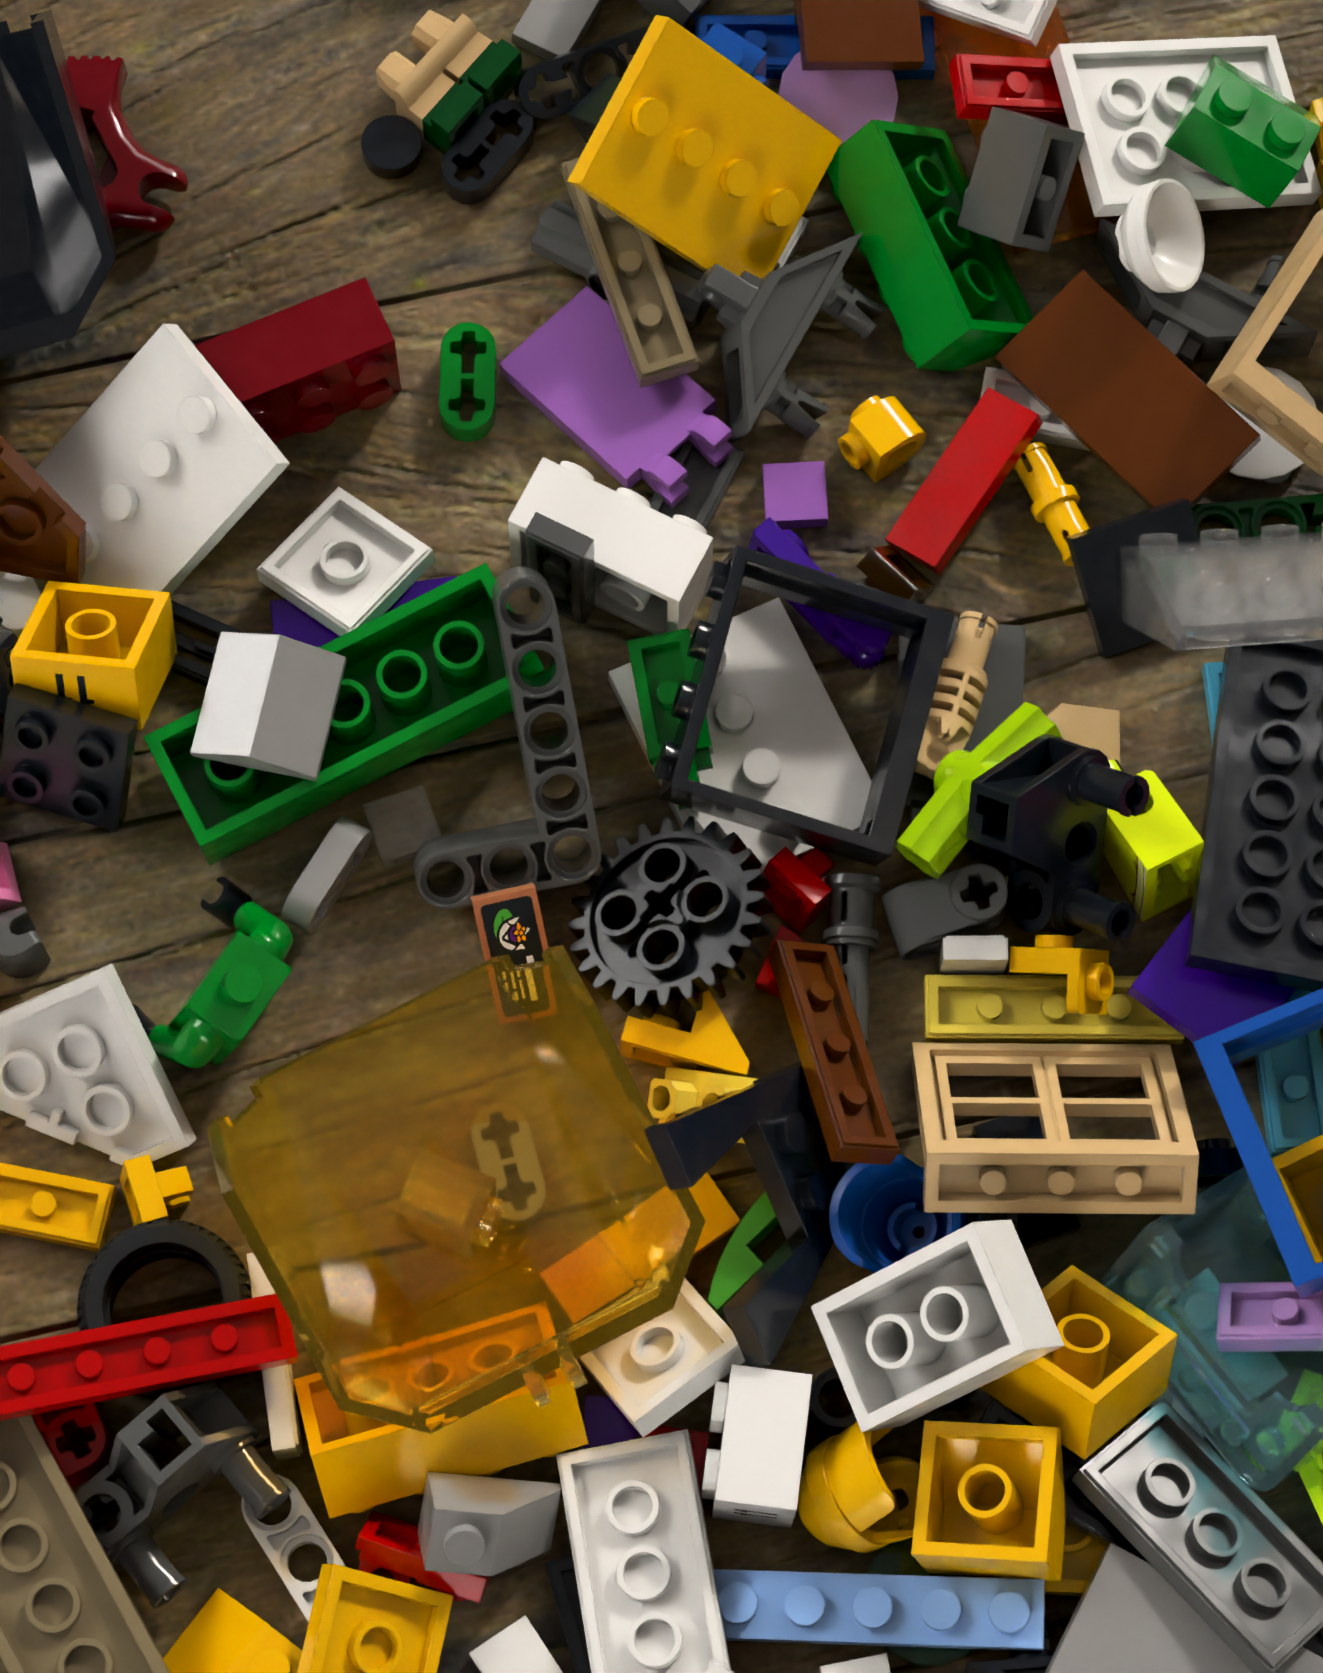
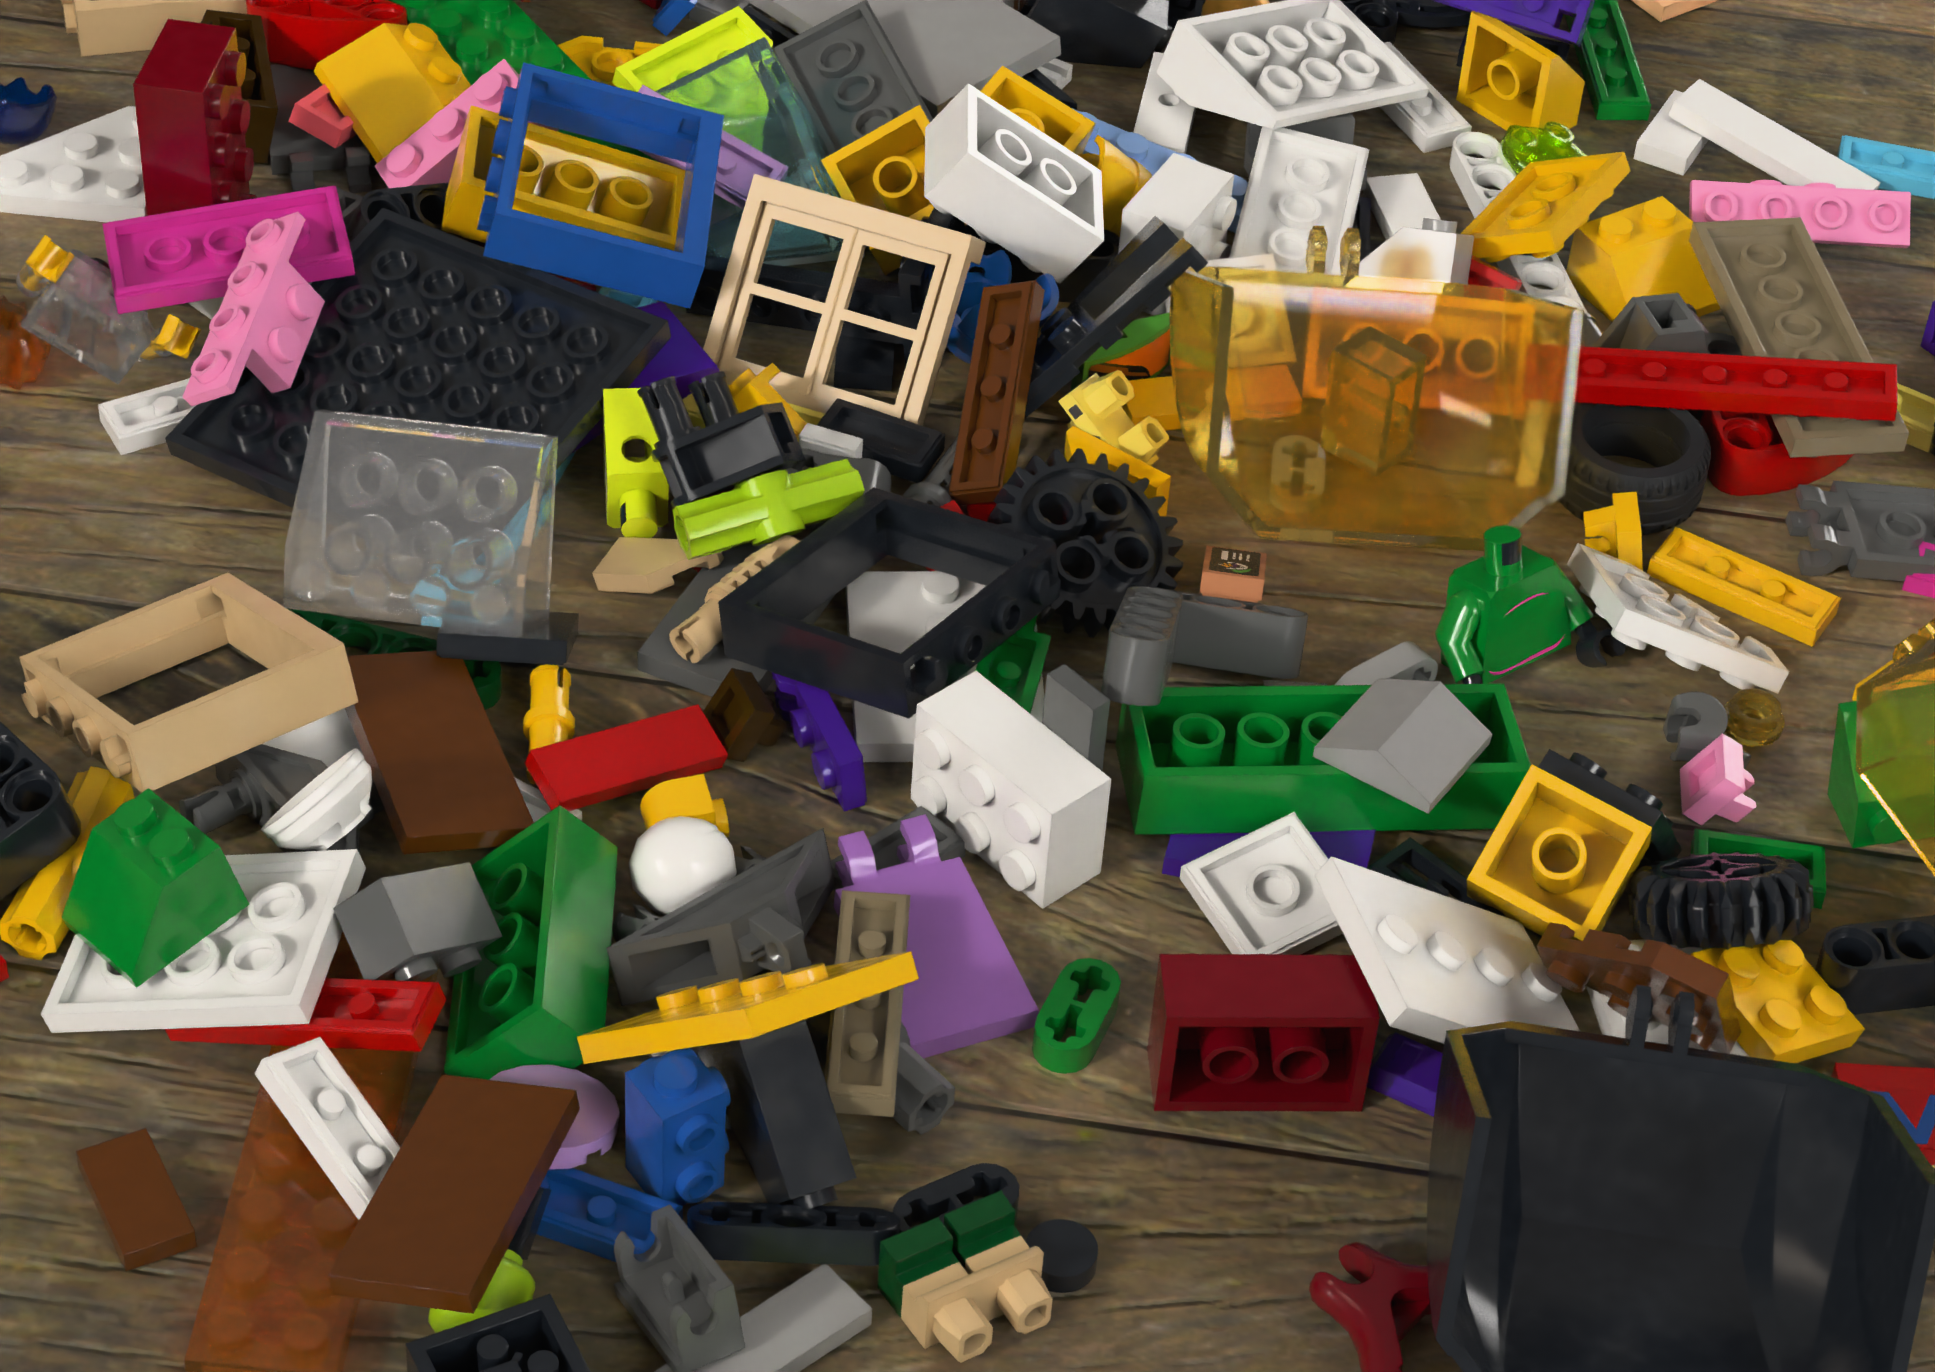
camera: 160 degrees left, 30 degrees down
(795, 494) = (790, 817): medium lavender tile -> none
(851, 363) = (680, 862): none -> white hair
(937, 1000) = (898, 444): none -> black tile

